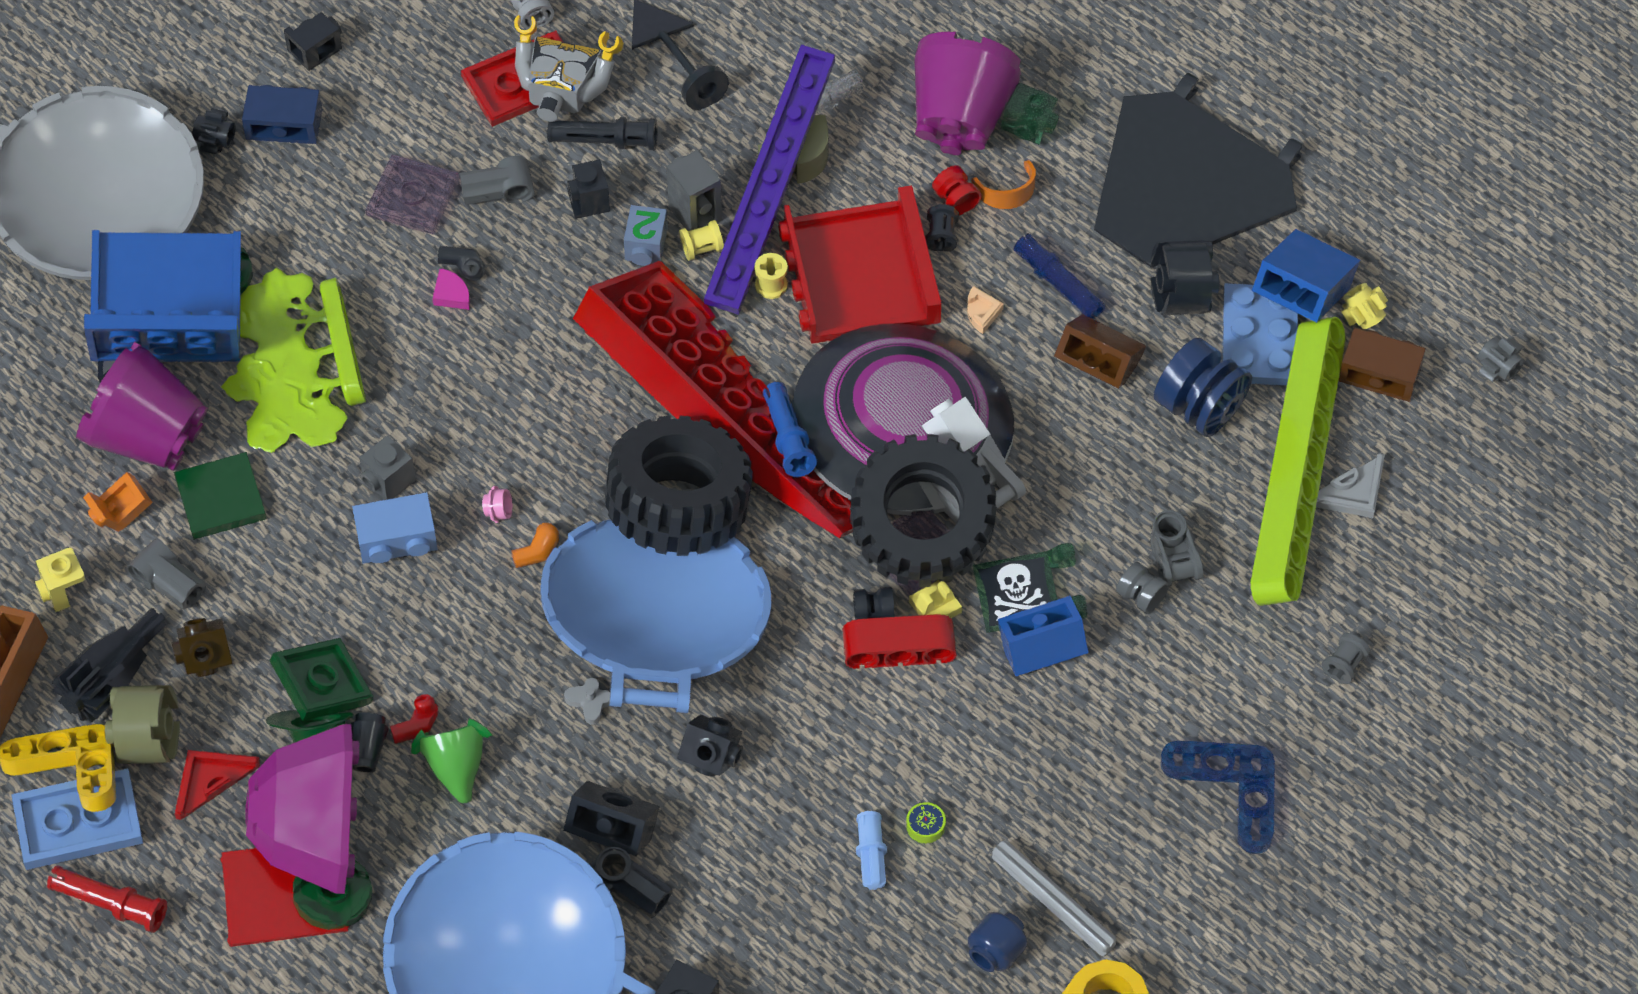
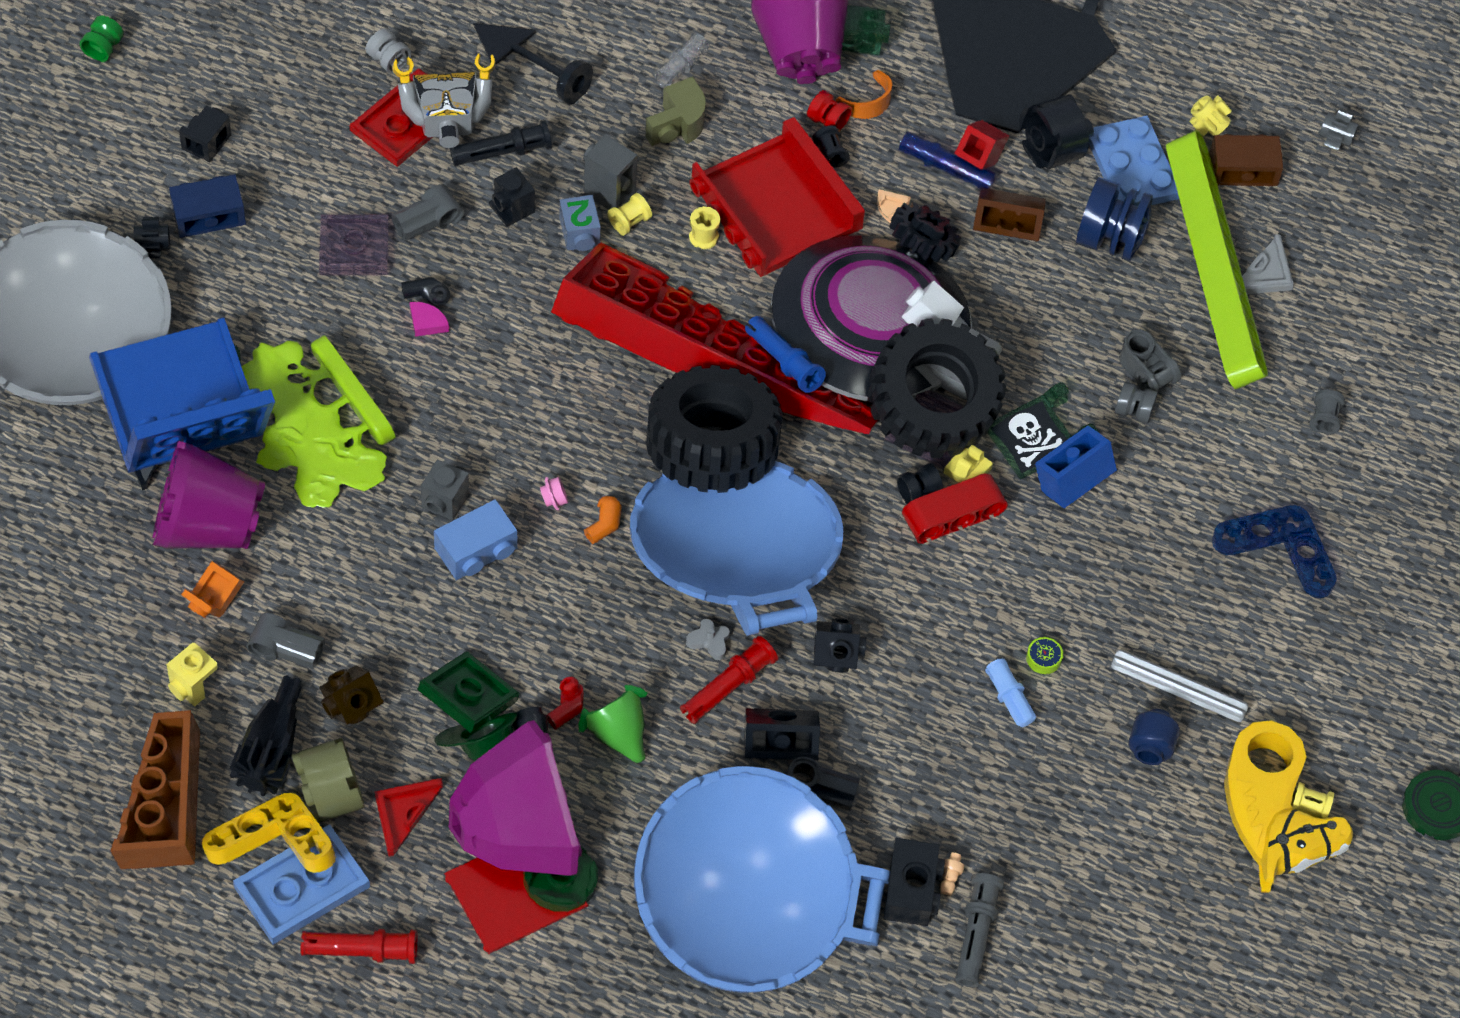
camera: 25 degrees left, 0 degrees up
(220, 495) = (300, 558): dark green tile -> none
(604, 741) = (741, 670): none -> red pin
(769, 179) = (672, 145): dark purple plate -> none
(997, 344) = (925, 232): none -> black gear
(1099, 269) = (981, 144): none -> red brick
(1305, 275) = (1155, 102): blue brick -> none

